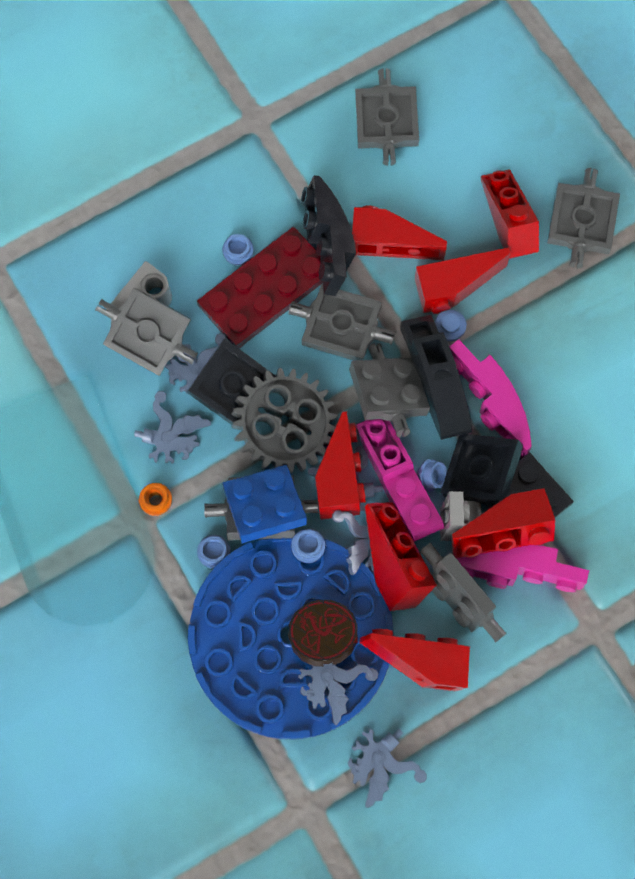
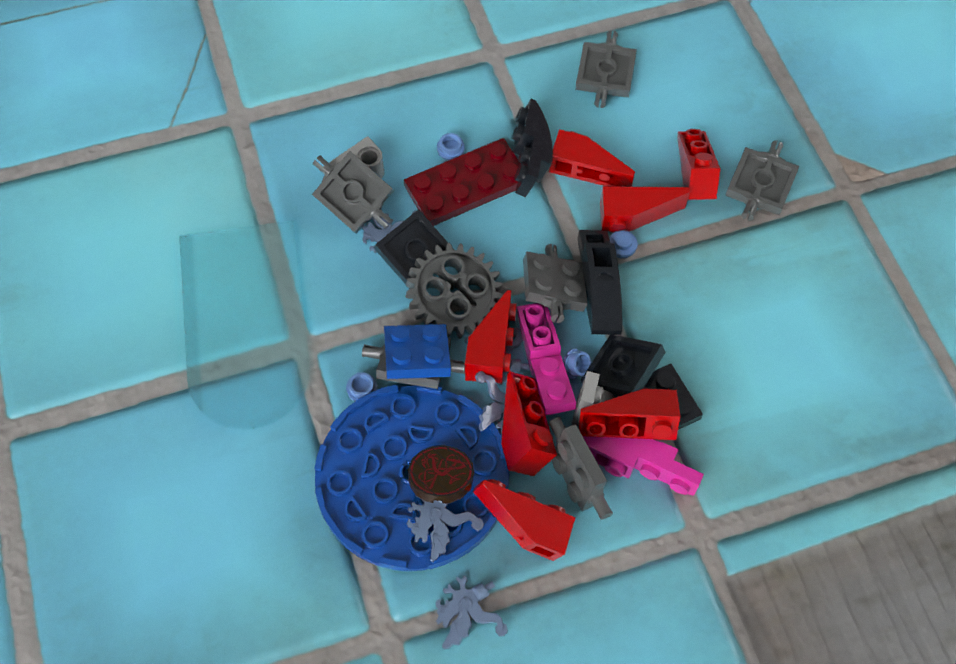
camera: 10 degrees right, 10 degrees down
(150, 491) = (320, 325): orange plate -> none
(167, 437) = (349, 283): sand blue piece -> none
(308, 545) = (447, 397): medium blue plate -> none
(342, 324) = (526, 222): dark grey plate -> none
(501, 404) = (652, 314): dark pink slope -> none

